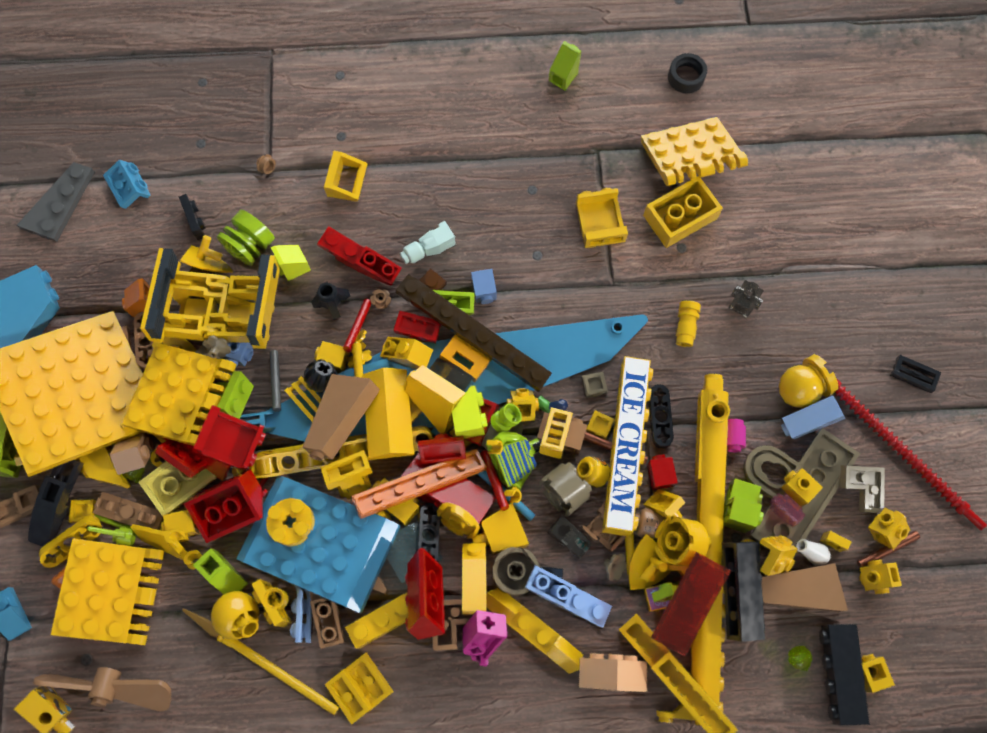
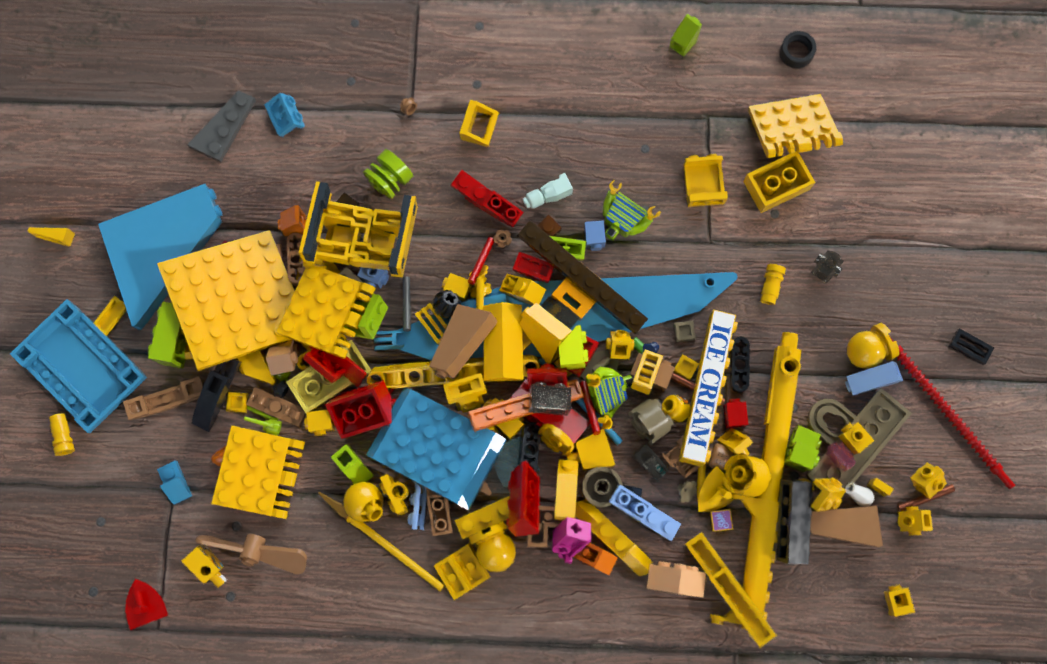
camera: 10 degrees right, 5 degrees up
(51, 547) = (229, 419): yellow beam -> none
(132, 491) = (280, 389): none -> black plate
(167, 542) = (309, 436): yellow flag -> none
(195, 223) = (340, 142): black plate -> none
(205, 258) = (352, 190): yellow shield -> none
(216, 346) = (359, 271): dark tan plant -> none
(229, 439) = (367, 354): red panel -> none
(290, 261) = (426, 198): neon yellow slope -> none
(301, 528) = (406, 420): yellow plate -> none
(329, 297) = (457, 234): black rock -> none
(395, 657) = (494, 548): none -> yellow tile
(446, 473) = (549, 399): none -> clear smoke brick
(506, 418) = (605, 355): lime wheel -> none
(515, 262) = (624, 215): none -> lime torso
(517, 656) = (597, 558): none -> orange slope
(665, 592) = (731, 516): lime plate -> none
(690, 604) = (748, 528): clear red brick -> none
(736, 435) = (804, 387): dark pink brick -> none
(800, 658) = (837, 582): clear neon green plate -> none
(844, 675) = (873, 599): black brick -> none
(870, 484) = (917, 441): dark tan plate -> none

